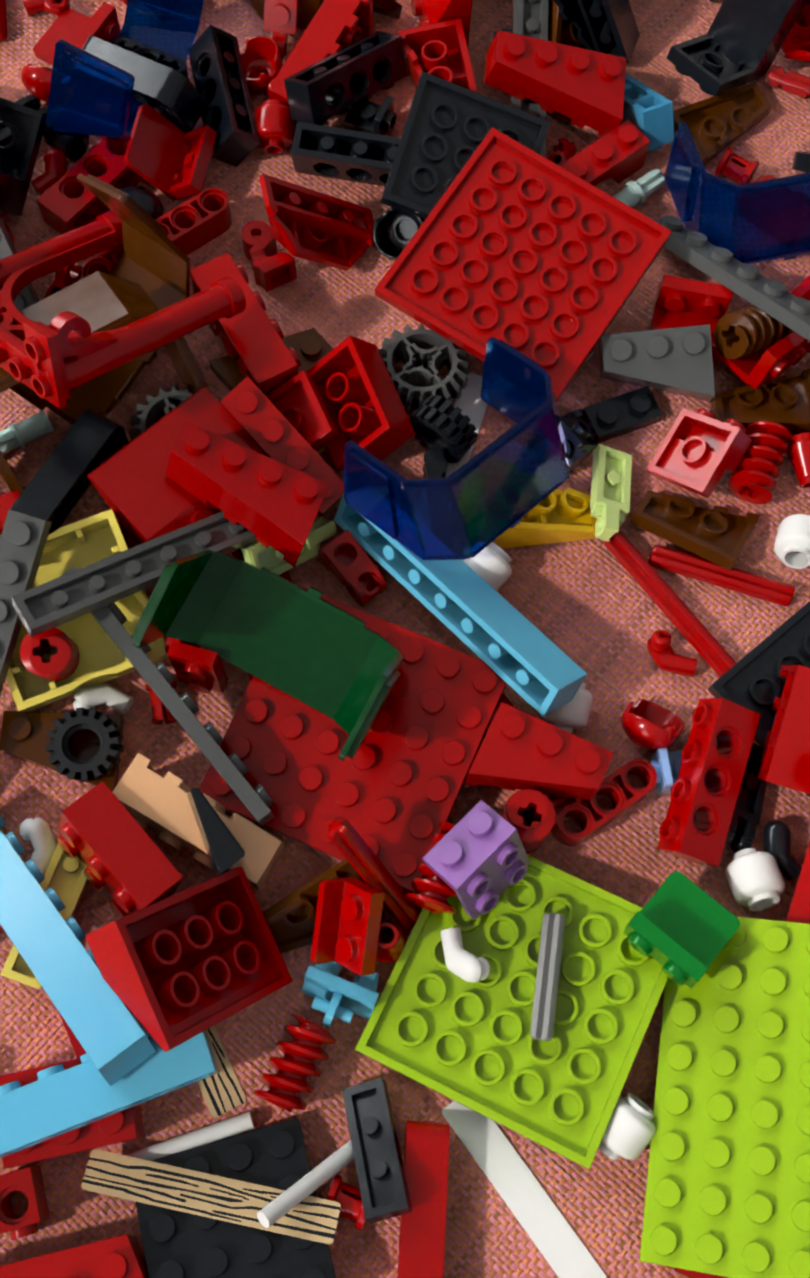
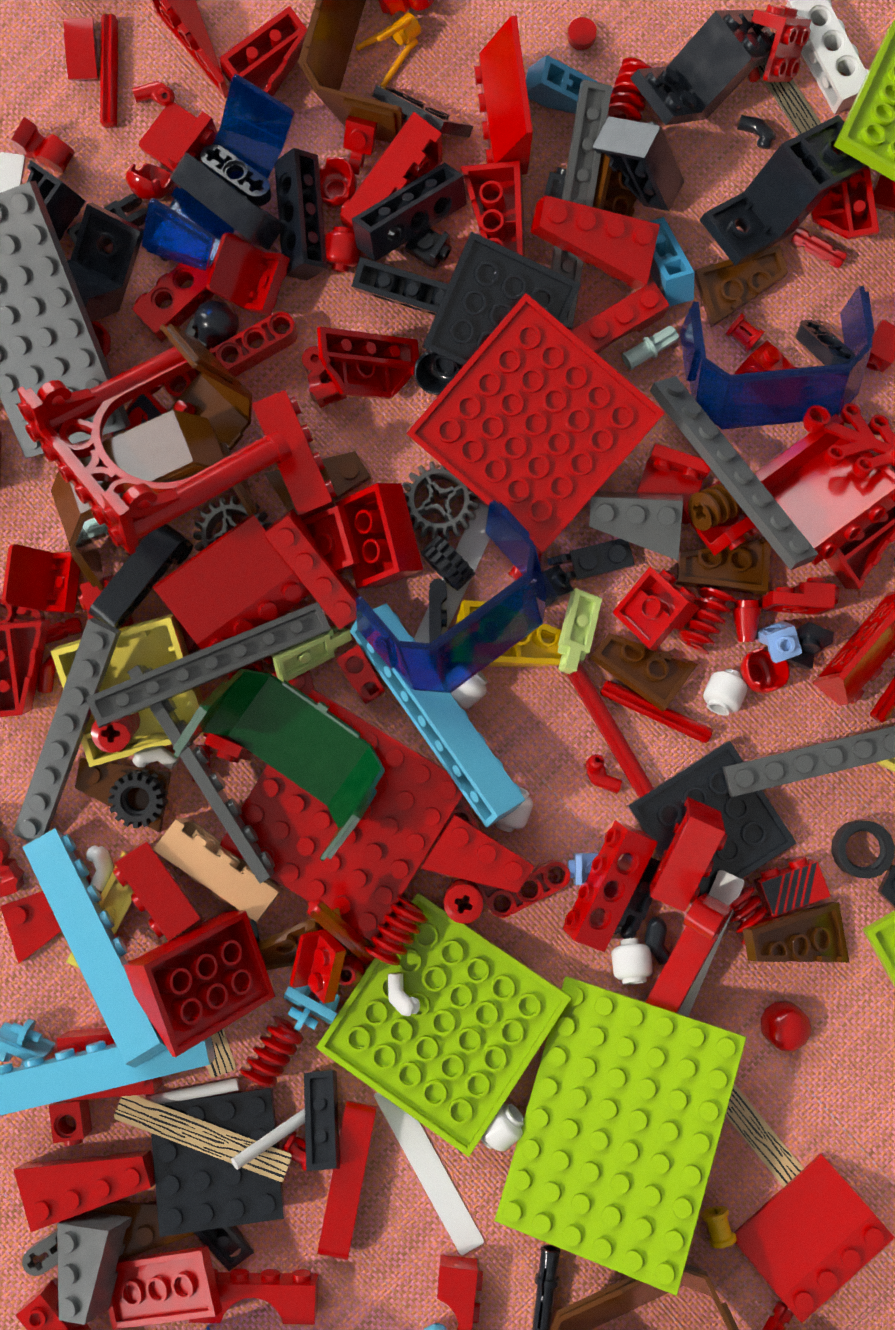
camera: 15 degrees right, 15 degrees up
(54, 169) = (149, 272): red arm -> none
(218, 840) = (230, 894): black slope -> none
(248, 487) = (280, 615): red wedge -> none
(479, 859) = (419, 931): medium lavender bracket -> none
(547, 977) = (460, 1019): light grey axle -> none
(562, 151) = (597, 299): red arm -> none
(651, 725) = (575, 832): red hair -> none
(681, 929) = (563, 1002): green bracket -> none

